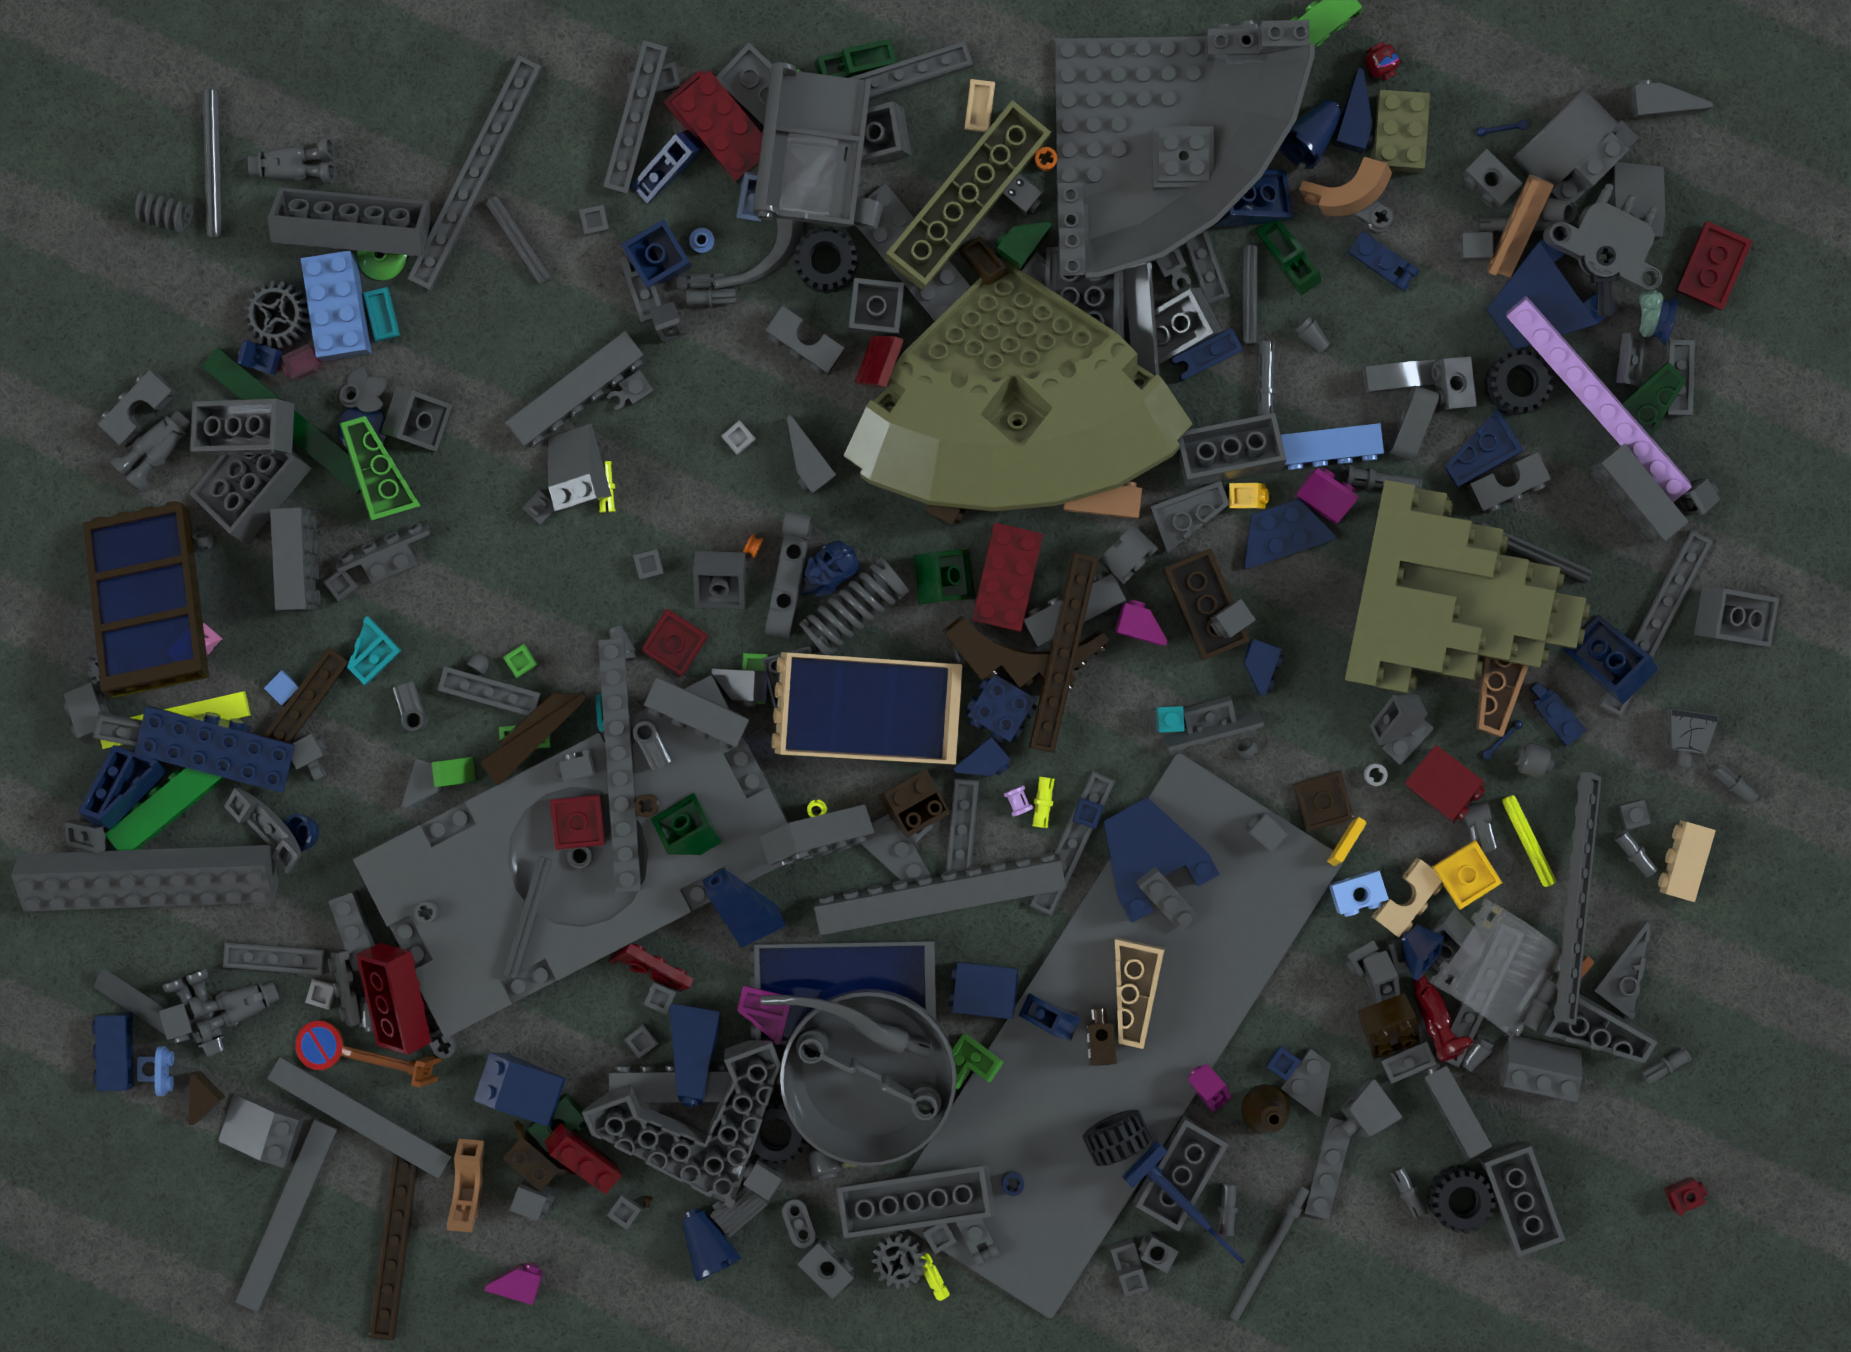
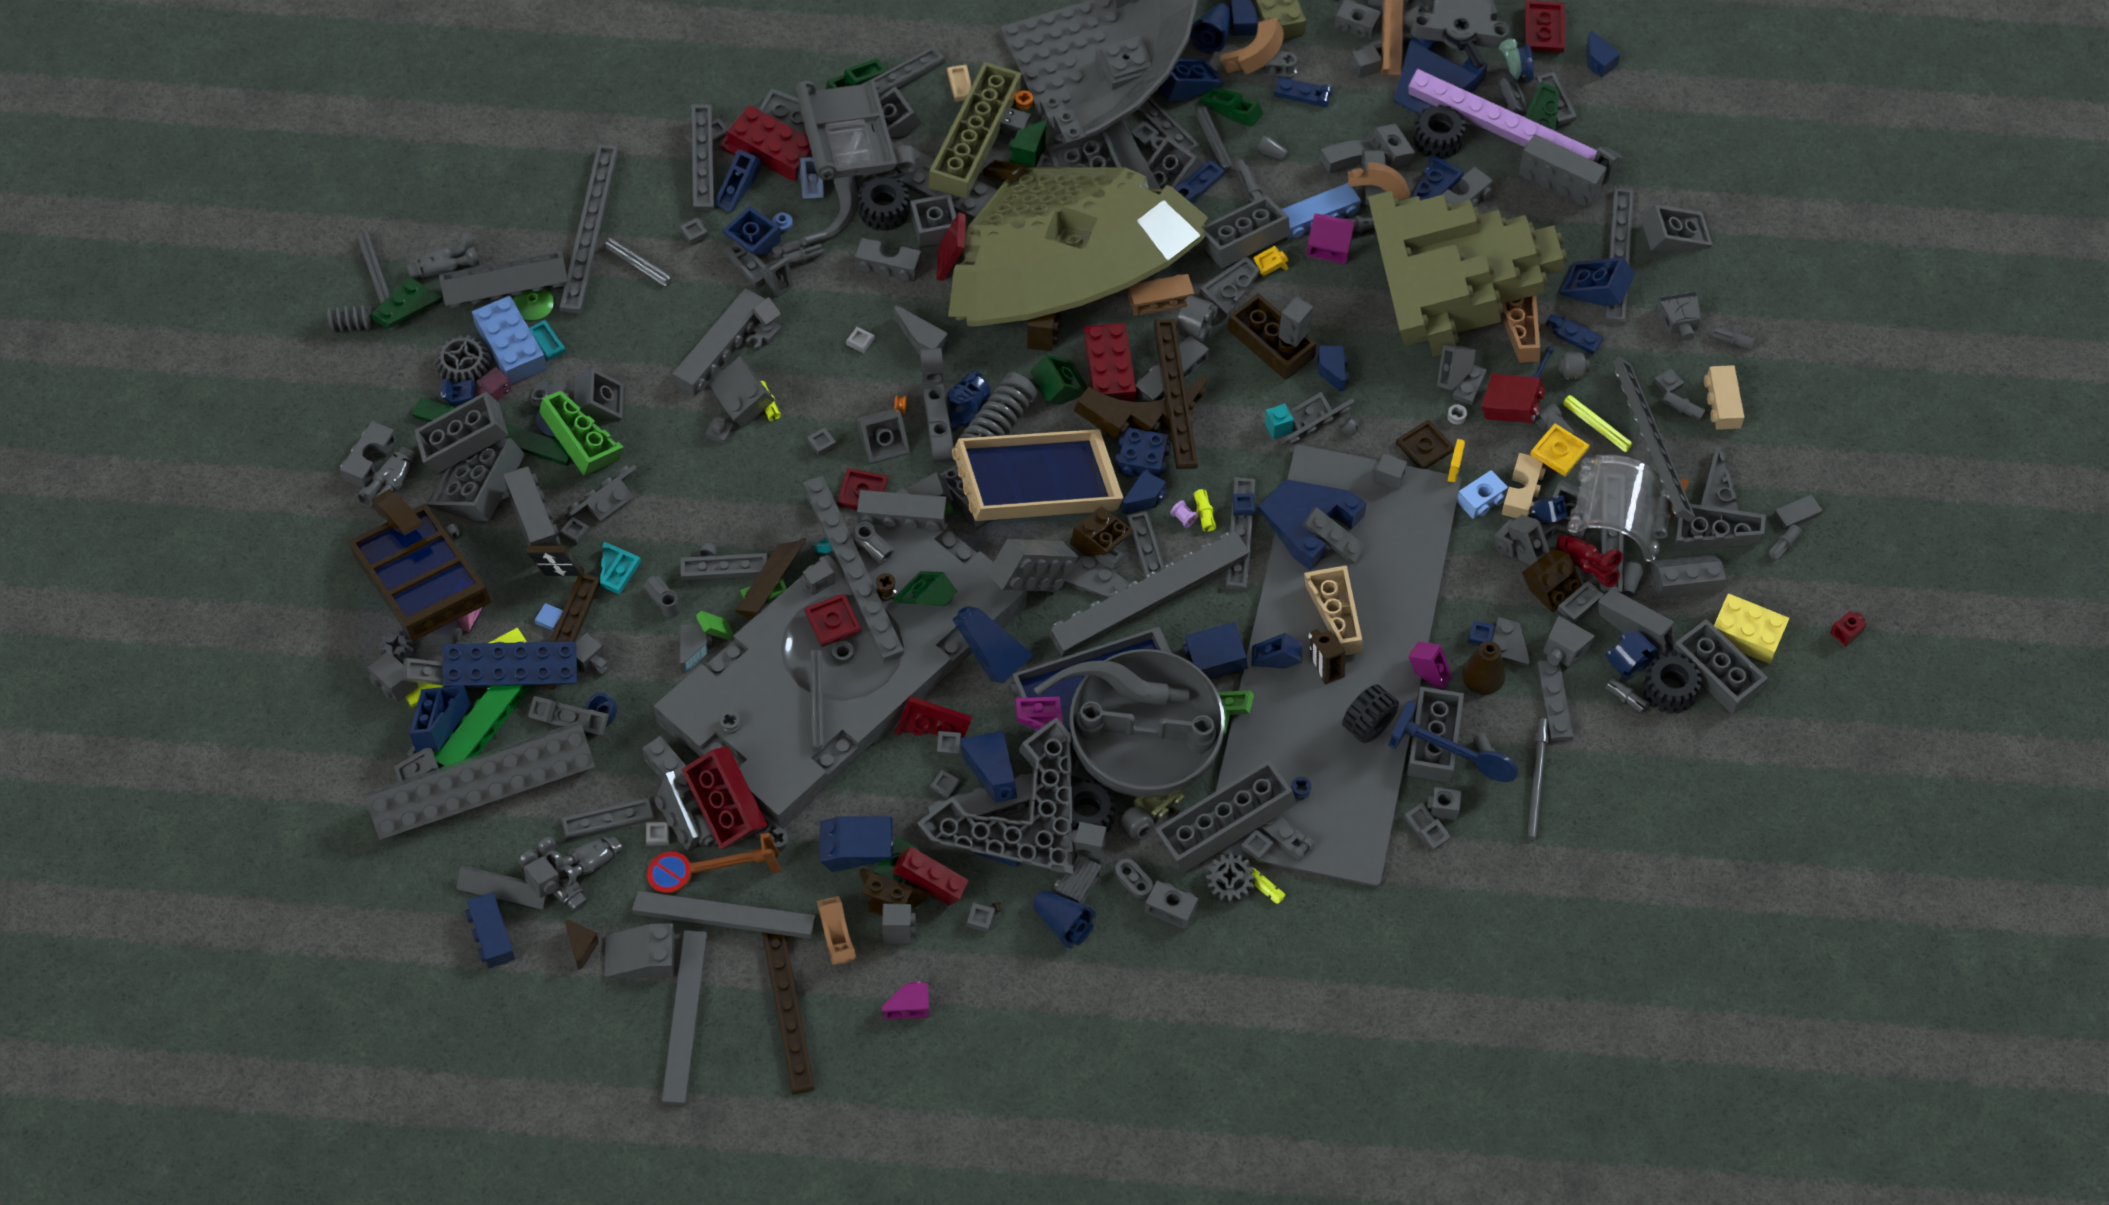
camera: 25 degrees left, 30 degrees down
(140, 515) = (396, 512): none -> dark brown slope
(162, 1060) = (542, 938): medium blue bracket -> none
(232, 210) = (404, 302): none -> dark green wing
(301, 632) = (555, 560): none -> tile
(520, 661) = (741, 540): bright green tile -> none
(638, 373) = (766, 311): none -> dark grey tile
(1139, 624) = (1228, 362): magenta slope -> none
(1284, 532) = (1311, 277): dark blue wing -> none
(1420, 441) = (1381, 176): none -> medium nougat arch
(1432, 1153) = (1631, 654): none -> dark blue brick
(1576, 1161) = (1751, 627): none -> light yellow brick
(1700, 1031) = (1798, 511): none -> dark grey tile
(1760, 333) = (1601, 55): none -> dark blue slope

